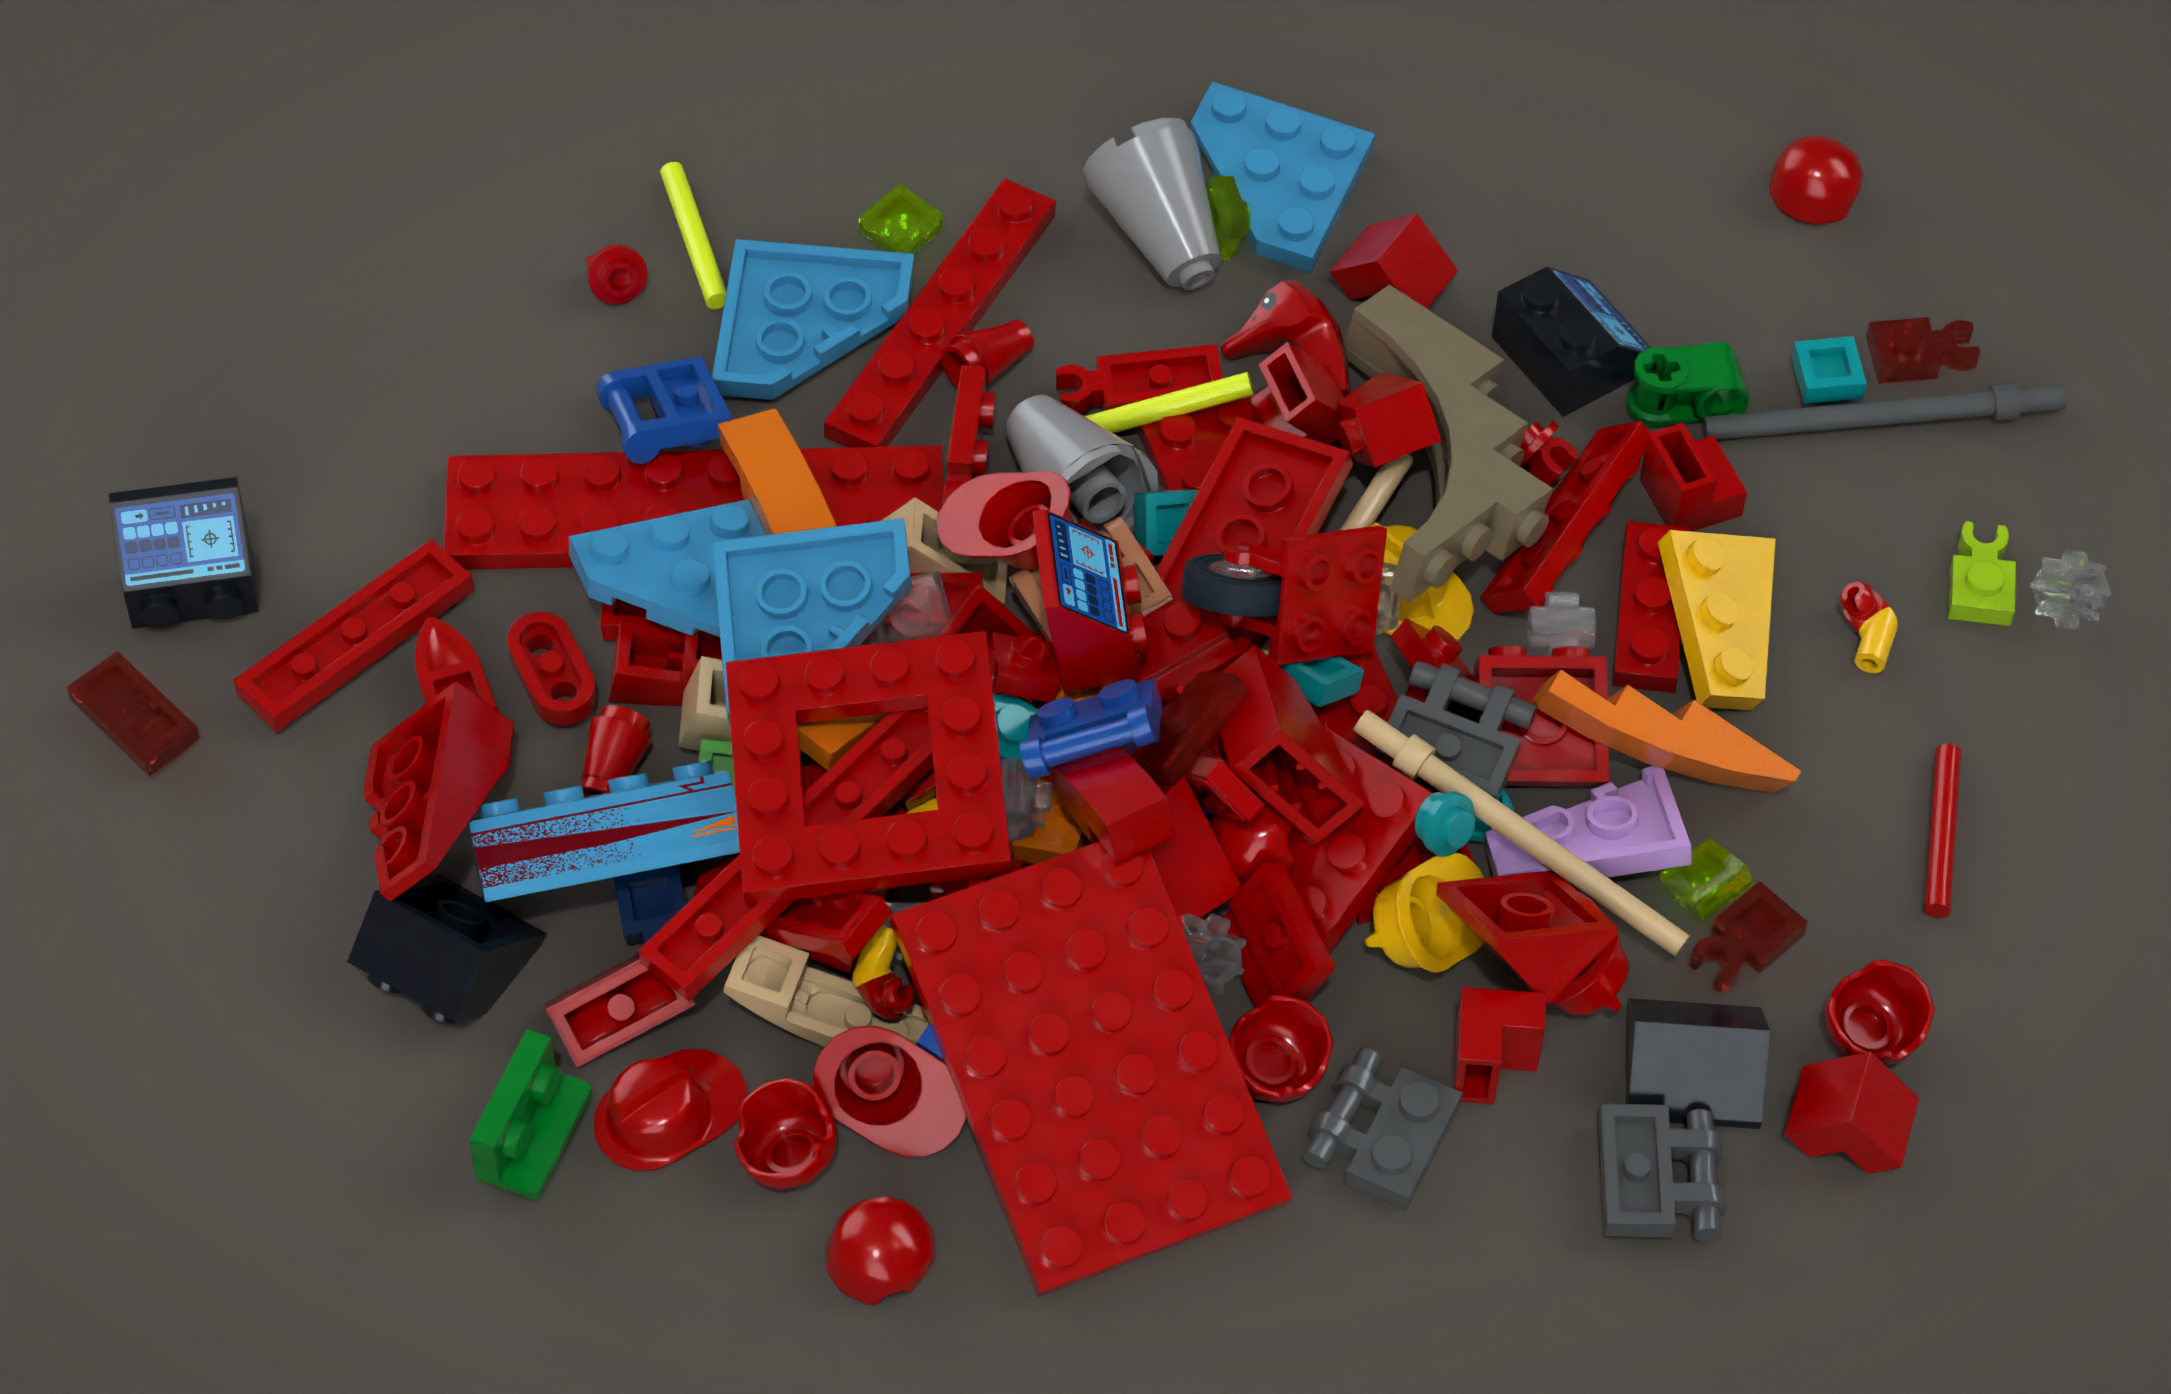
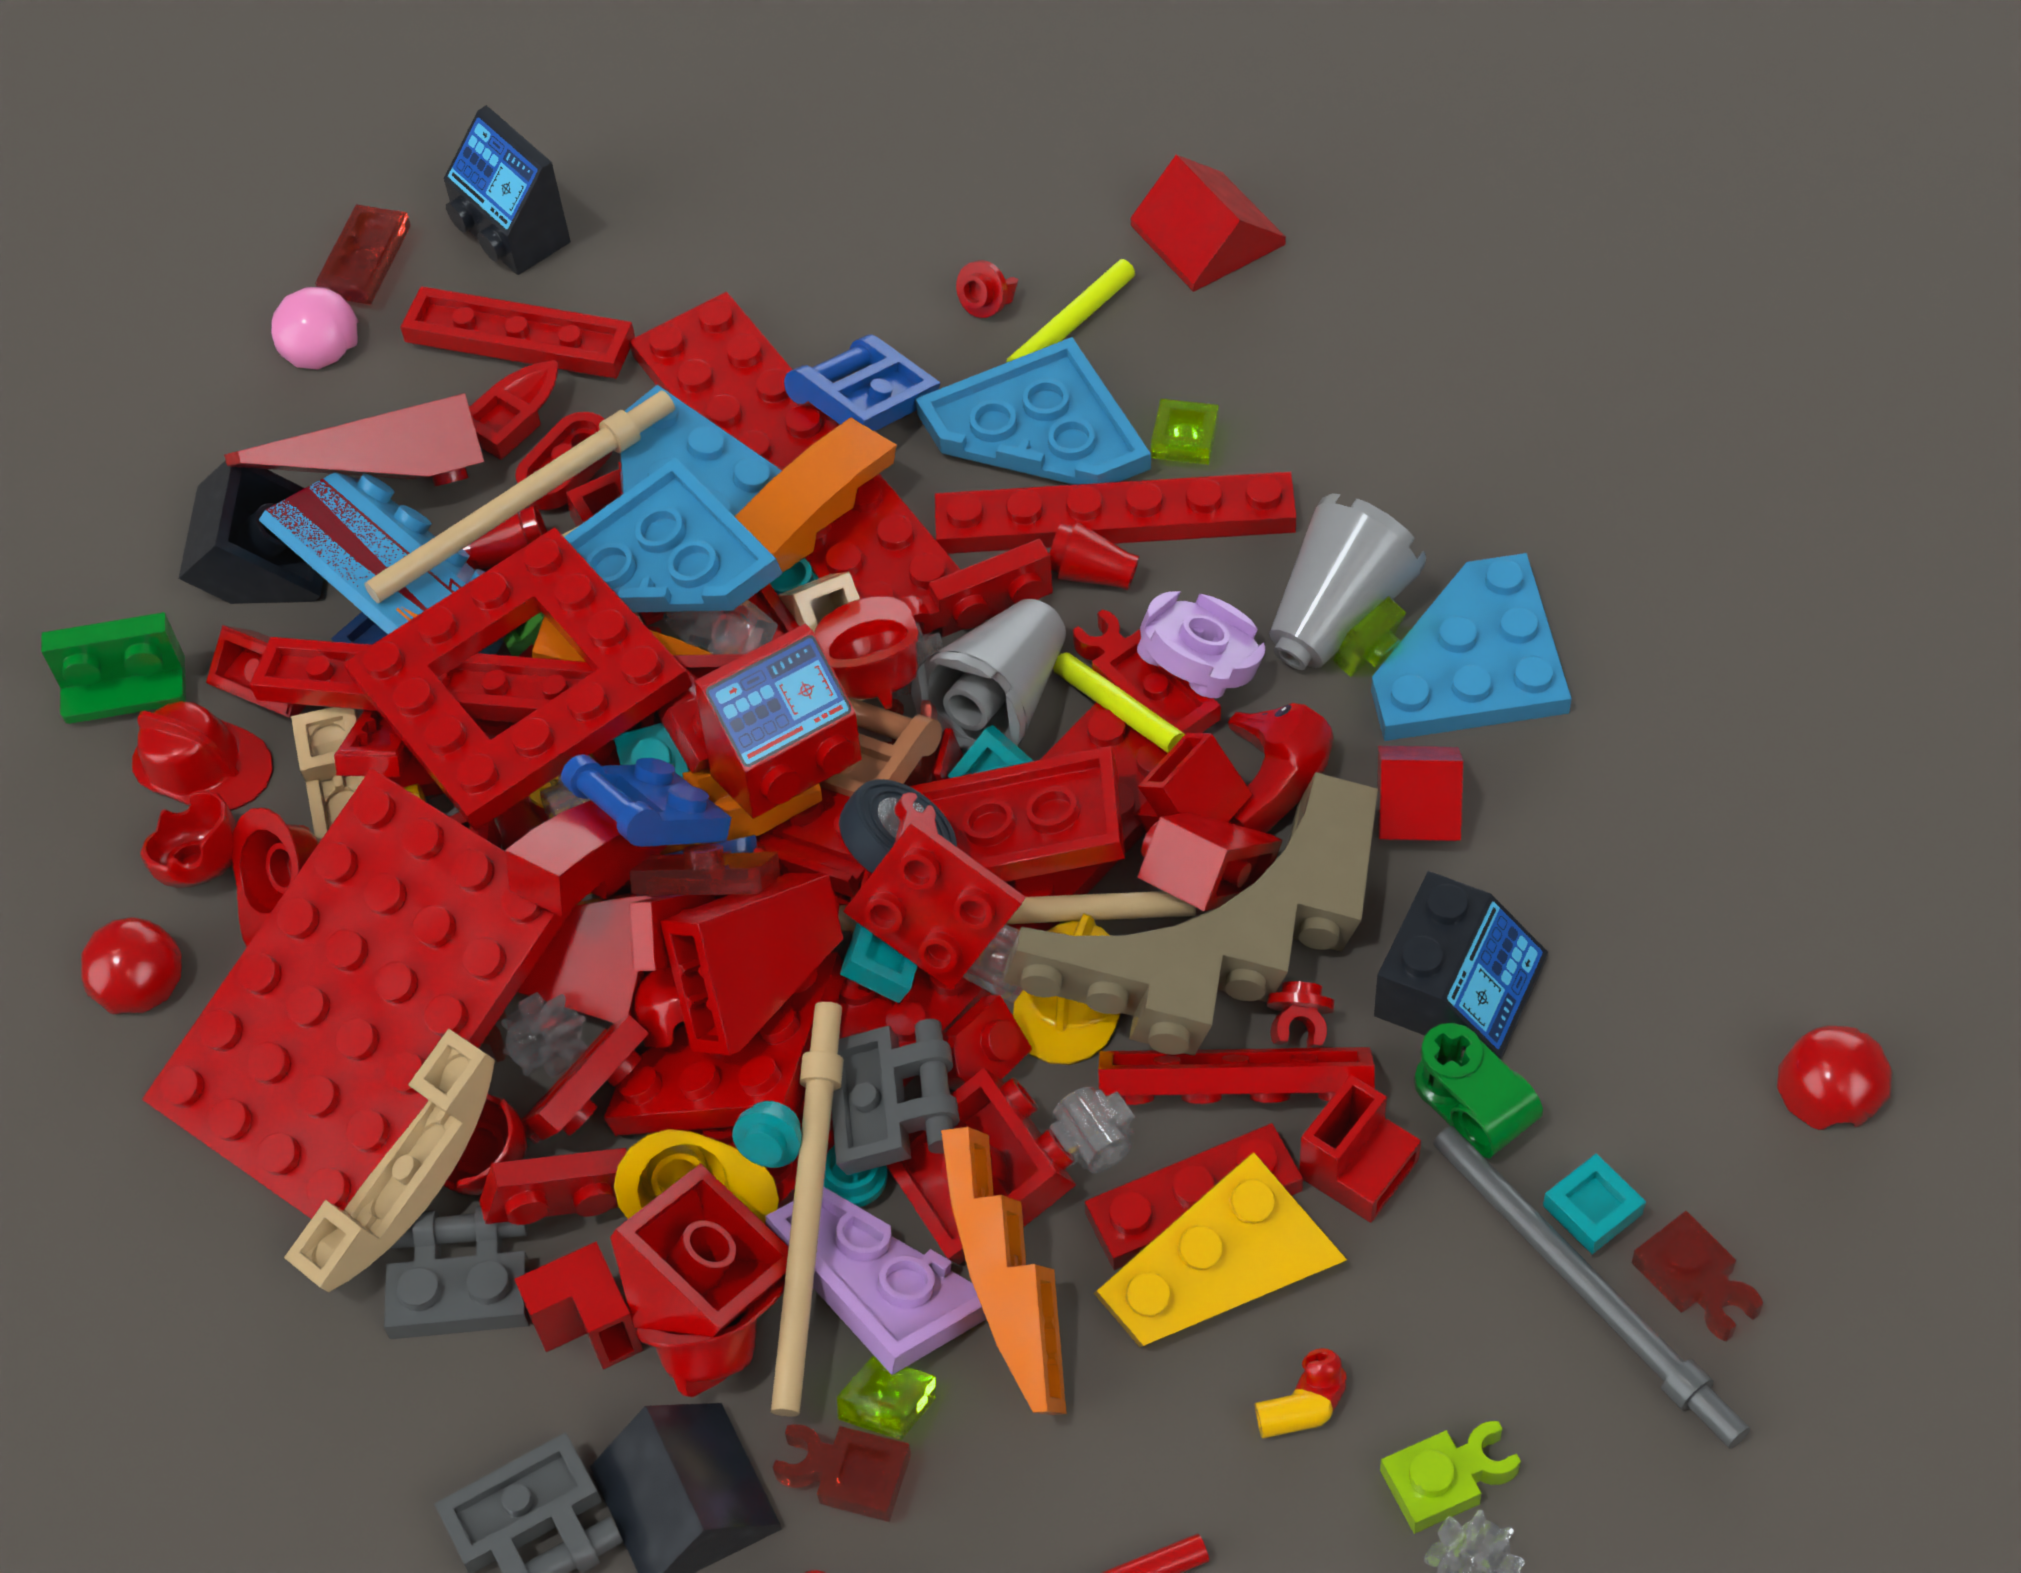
camera: 65 degrees right, 0 degrees up
(197, 794) = (314, 327): none -> bright pink hair
(626, 584) = (615, 433): none -> tan bar
(672, 96) = (1203, 223): none -> red slope
(1144, 323) = (1200, 642): none -> lavender plate
(1282, 1100) = (410, 1175): none -> tan slope
(1371, 1020) = (551, 1186): none -> red plate

